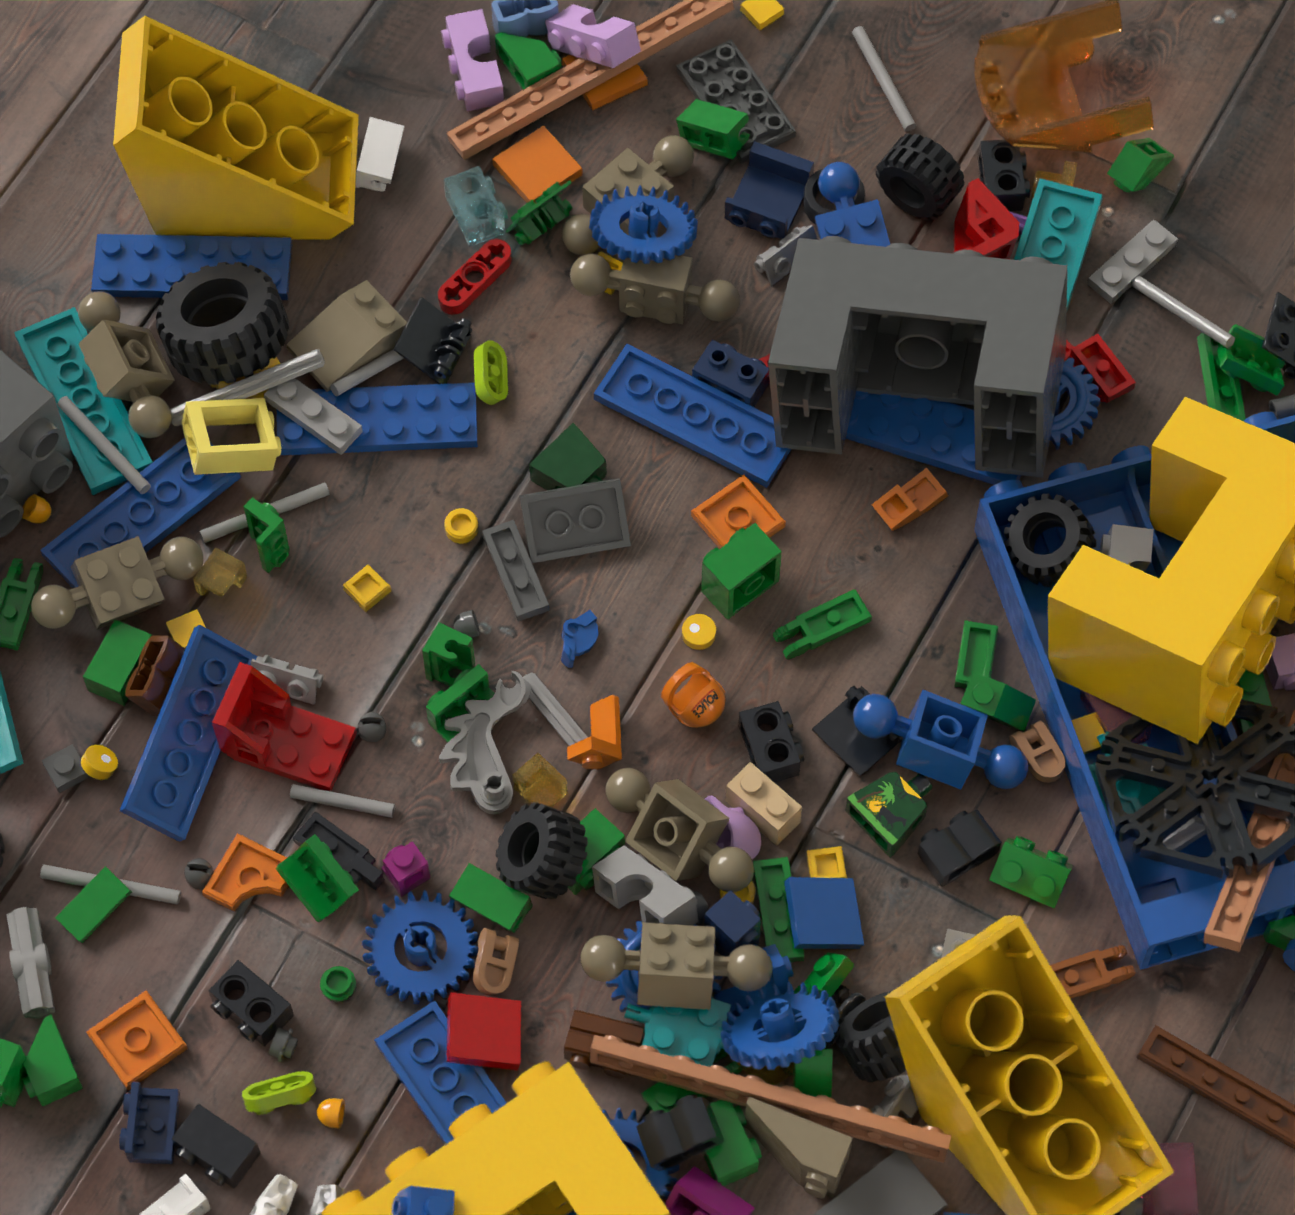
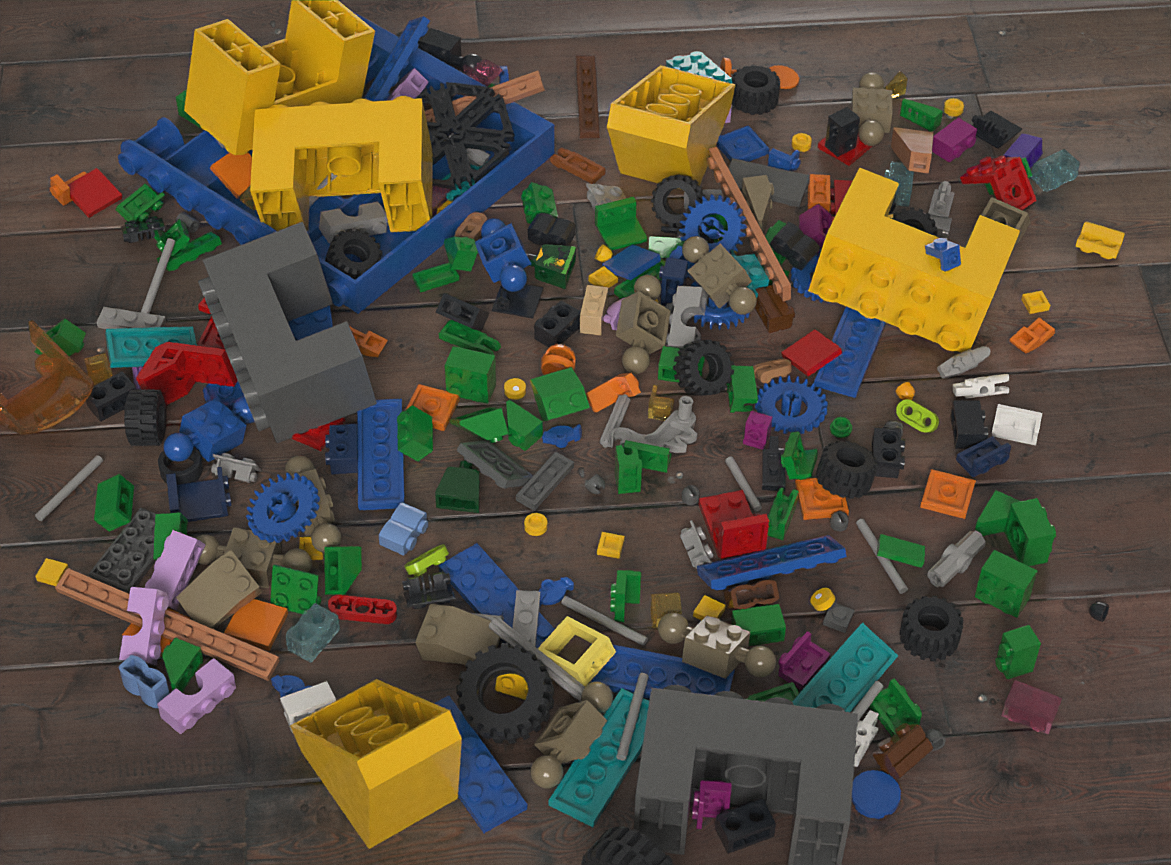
camera: 125 degrees left, 15 degrees down
(31, 676) = (802, 661): none -> magenta bracket
(249, 889) = (846, 469): none -> black tyre
(257, 805) = (782, 513): none -> green hinge
(345, 481) = (554, 591): none -> blue piece
(421, 154) = (288, 684): none -> blue piece
(541, 276) = (341, 568): none -> green slope
(555, 373) = (403, 528): none -> medium blue brick
(588, 136) = (219, 591): none -> dark tan slope
(624, 592) = (522, 426): none -> green slope
(629, 655) = (559, 394): none -> green slope
(656, 102) = (175, 566): none -> lavender brick
(661, 547) = (484, 424): none -> green slope
(692, 459) = (415, 433): none -> green brick
(813, 98) = (114, 502): none -> green brick
(868, 632) = (462, 312): none -> black brick
(871, 891) = (603, 254): none -> yellow hinge
(902, 944) = (619, 224): none -> green bracket

